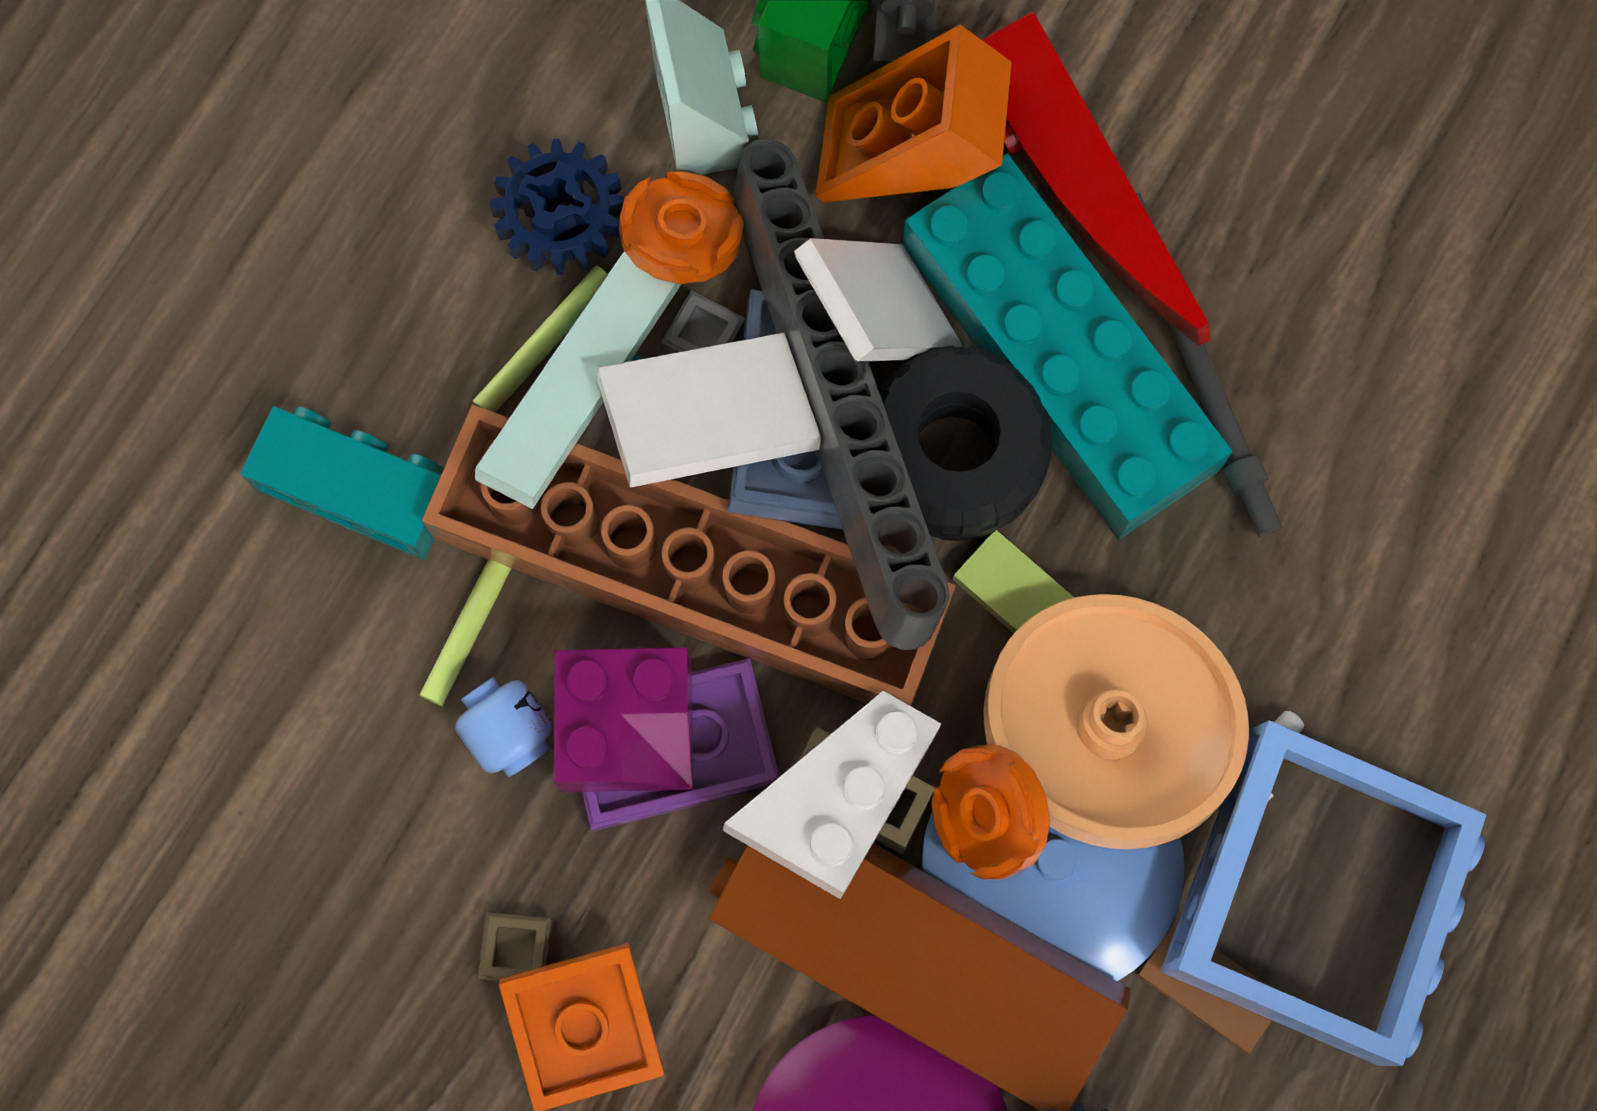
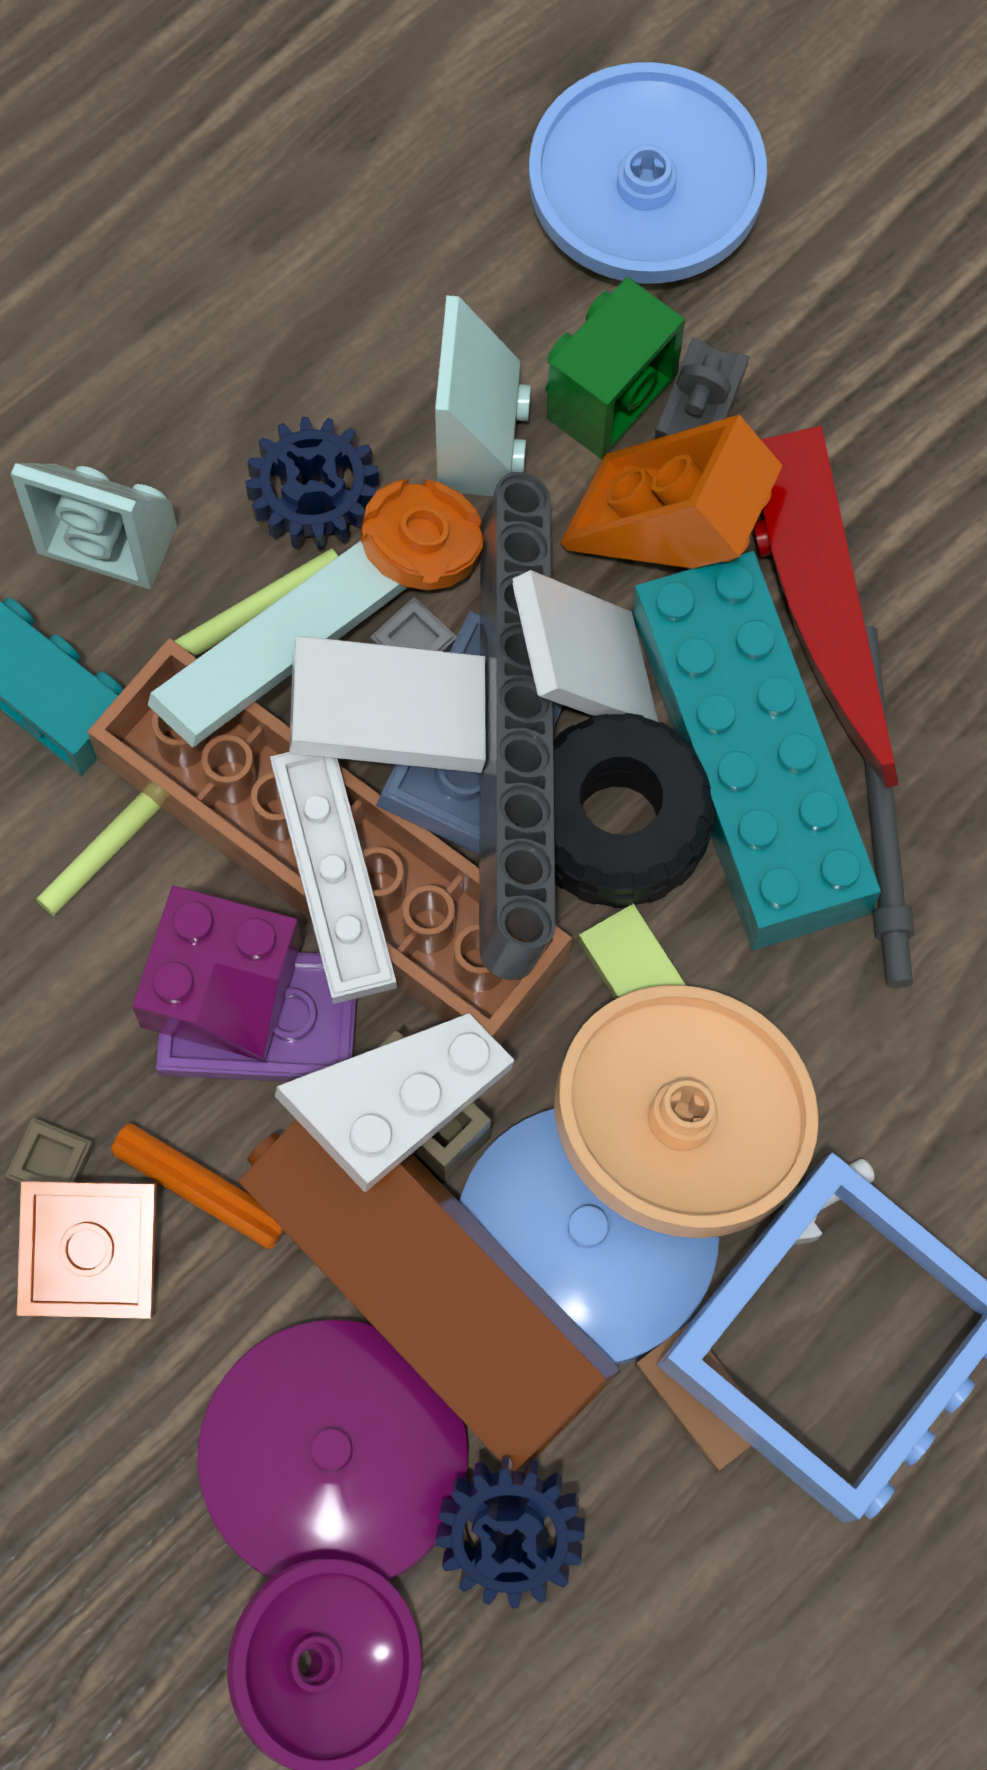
camera: 15 degrees right, 5 degrees down
(360, 305) = (95, 521): none -> light aqua slope
(504, 726) = (104, 948): light blue head -> none
(663, 929) = (196, 1184): none -> orange axle
(708, 594) = (333, 876): none -> white tile
(991, 811) = (536, 1157): orange tile -> none

